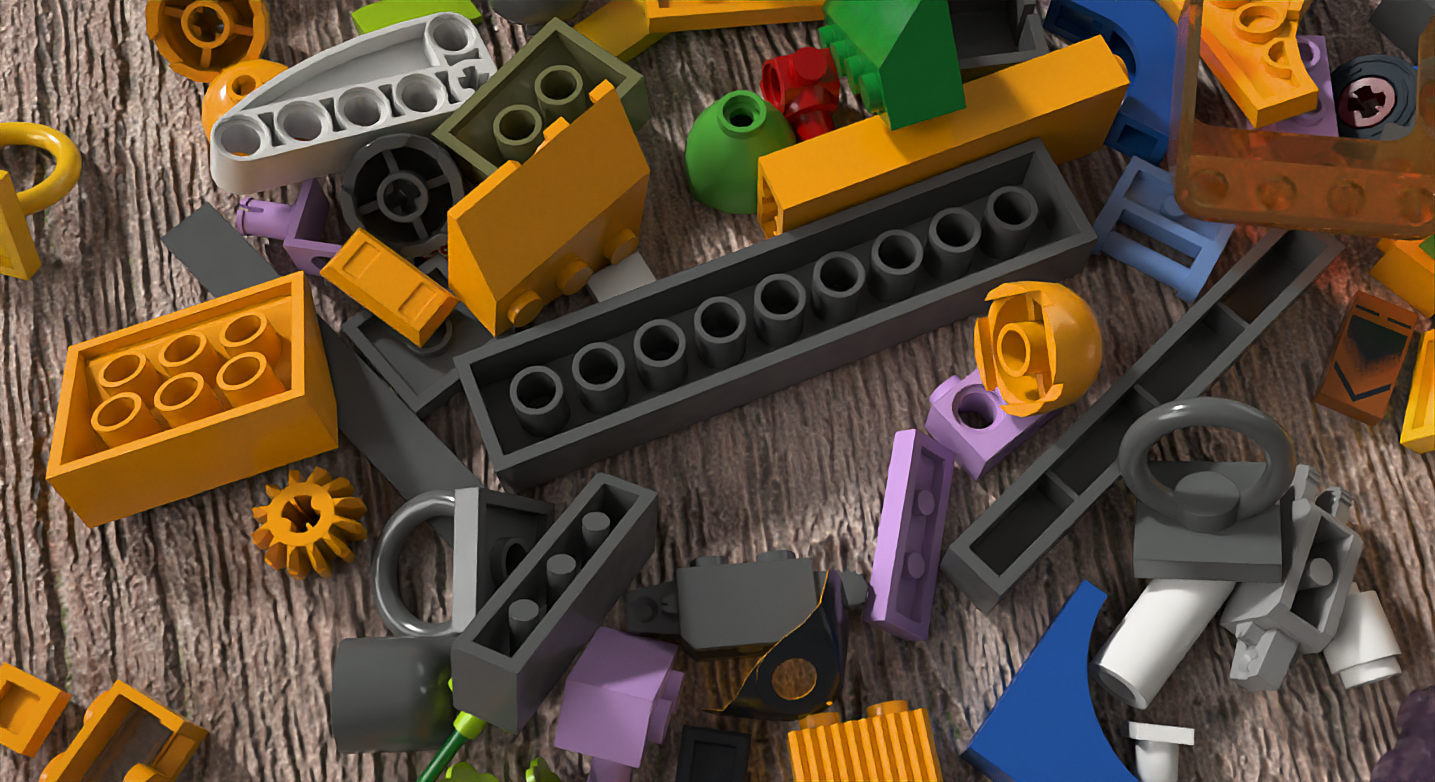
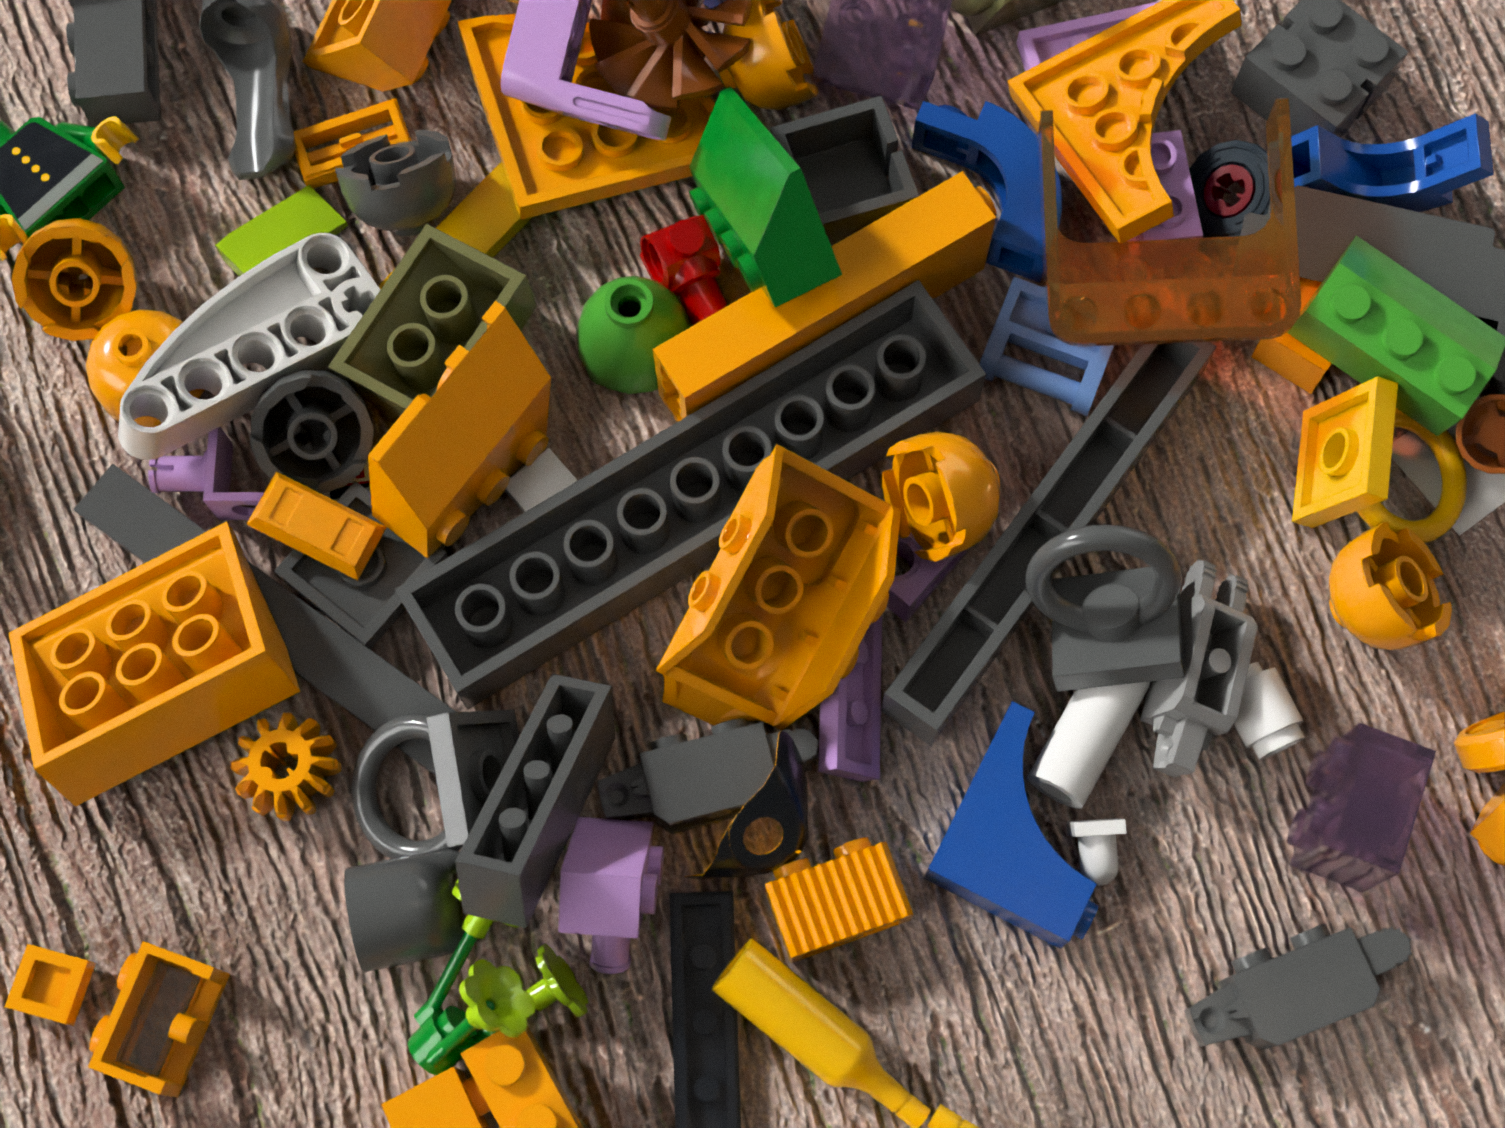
camera: 10 degrees left, 5 degrees up
(854, 428) = (785, 598): none -> light orange slope
(1365, 358) = (1253, 444): dark orange tile -> none

